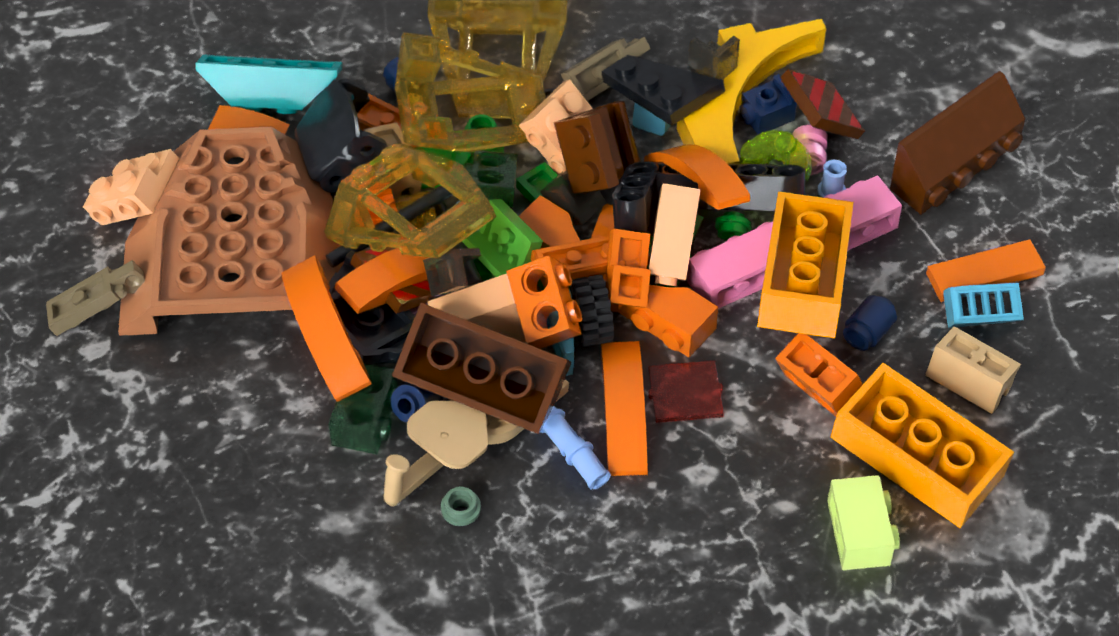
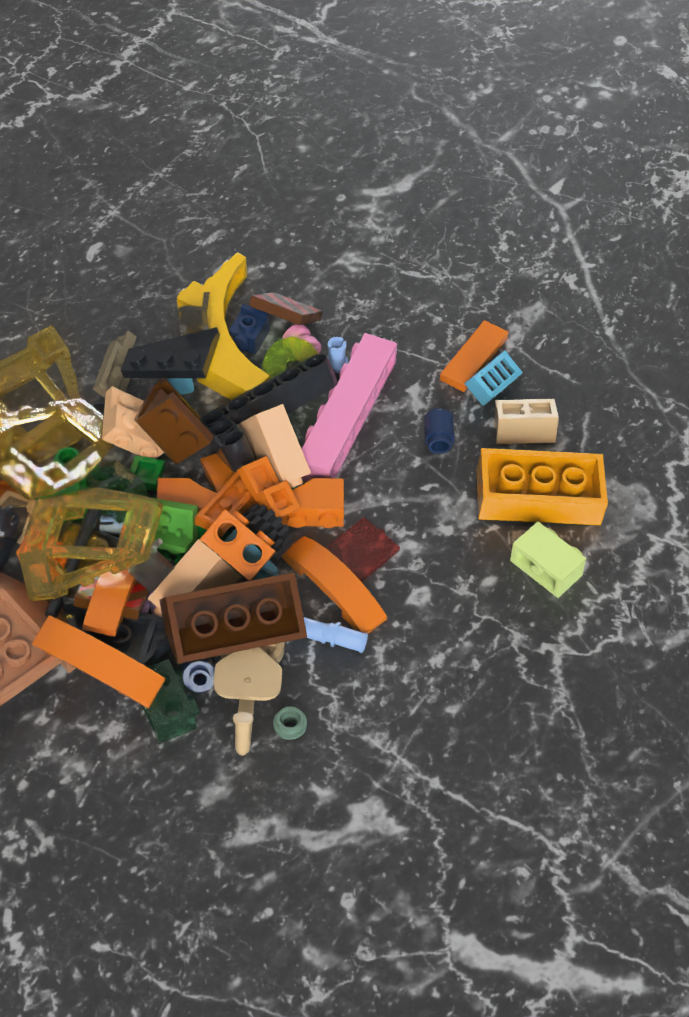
camera: 40 degrees left, 0 degrees up
(579, 205) = (188, 468): clear smoke panel -> none
(715, 178) = (257, 392): orange slope -> none
(731, 225) = (300, 421): green plate -> none
(805, 265) = (385, 414): light orange brick -> none
(818, 373) = (444, 482): orange brick -> none
(957, 144) = (395, 285): reddish brown slope -> none

